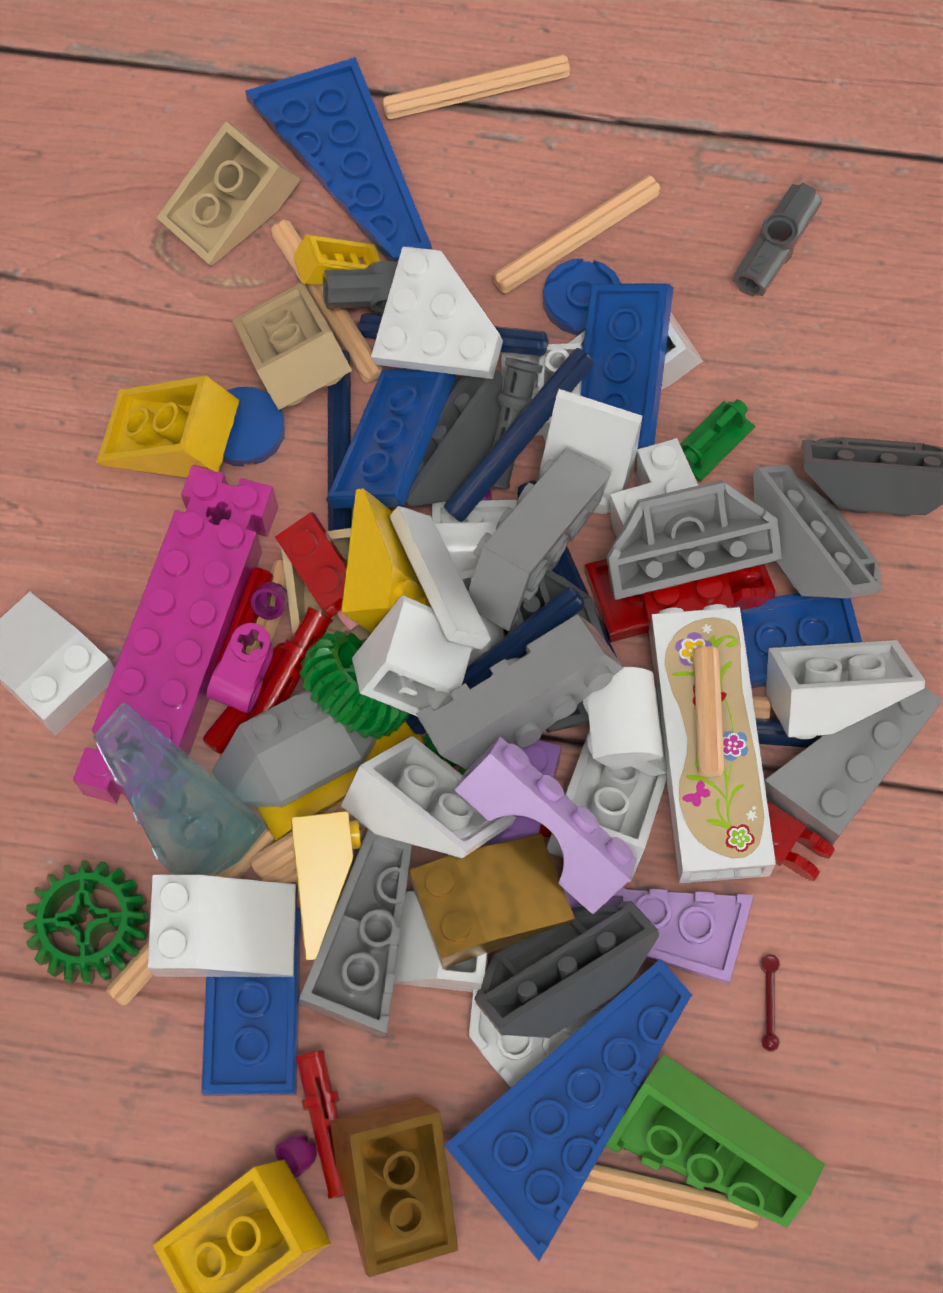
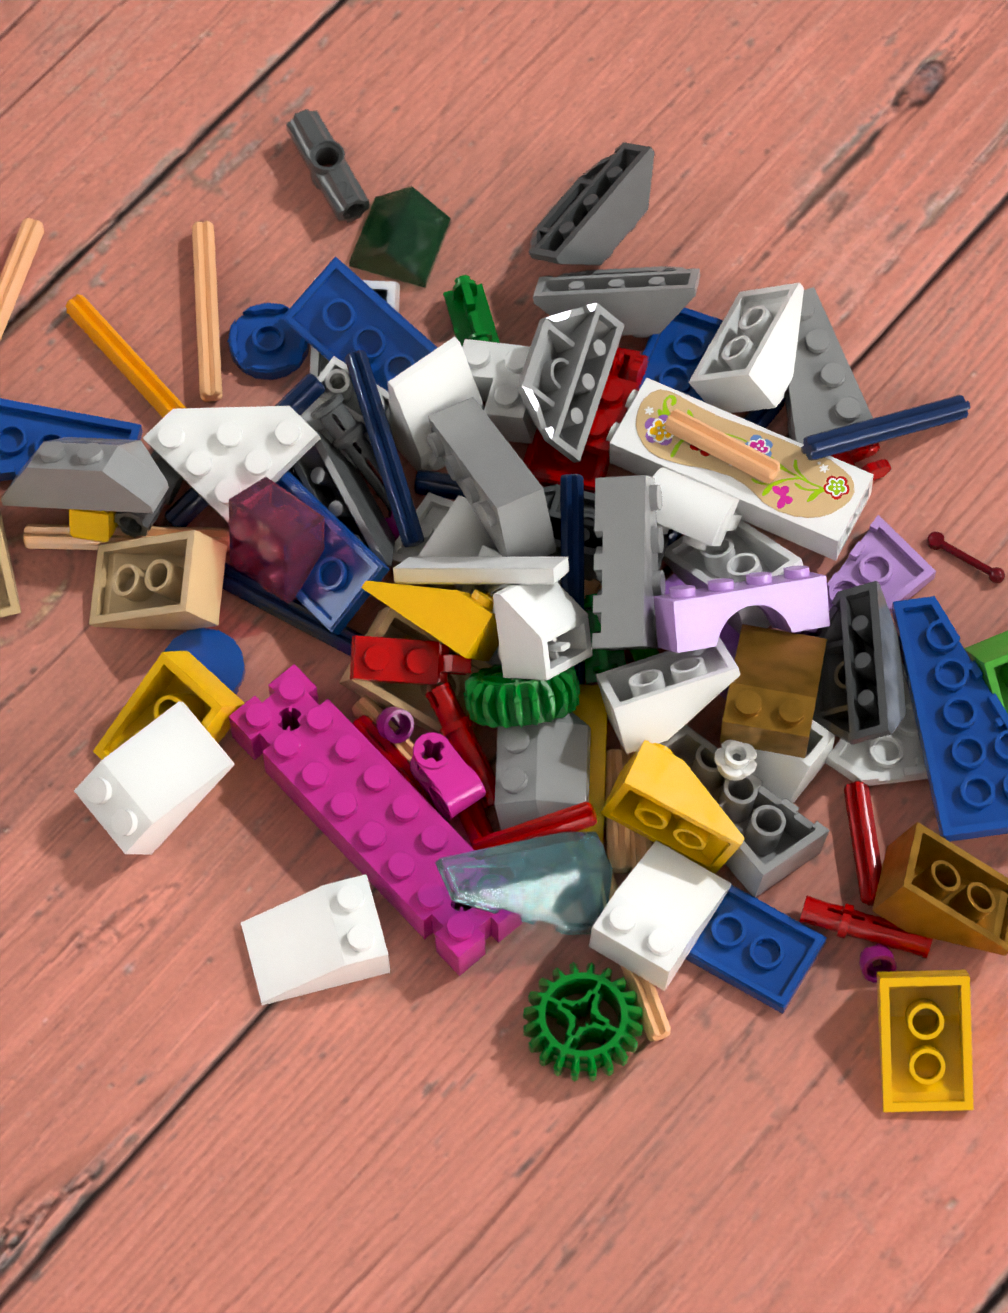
camera: 60 degrees left, 5 degrees down
(97, 443) = (154, 780): none -> white slope
(231, 774) = (565, 820): none -> red axle
(343, 230) = (89, 476): none -> light grey wedge
(376, 399) = (274, 537): none -> clear pink slope
(396, 918) = (731, 768): none -> white plate
(416, 1070) = (863, 839): none -> red axle
(488, 205) = (122, 355): none -> light orange axle
(754, 339) = (401, 237): none -> clear green slope
(841, 848) = (885, 427): none -> dark blue axle

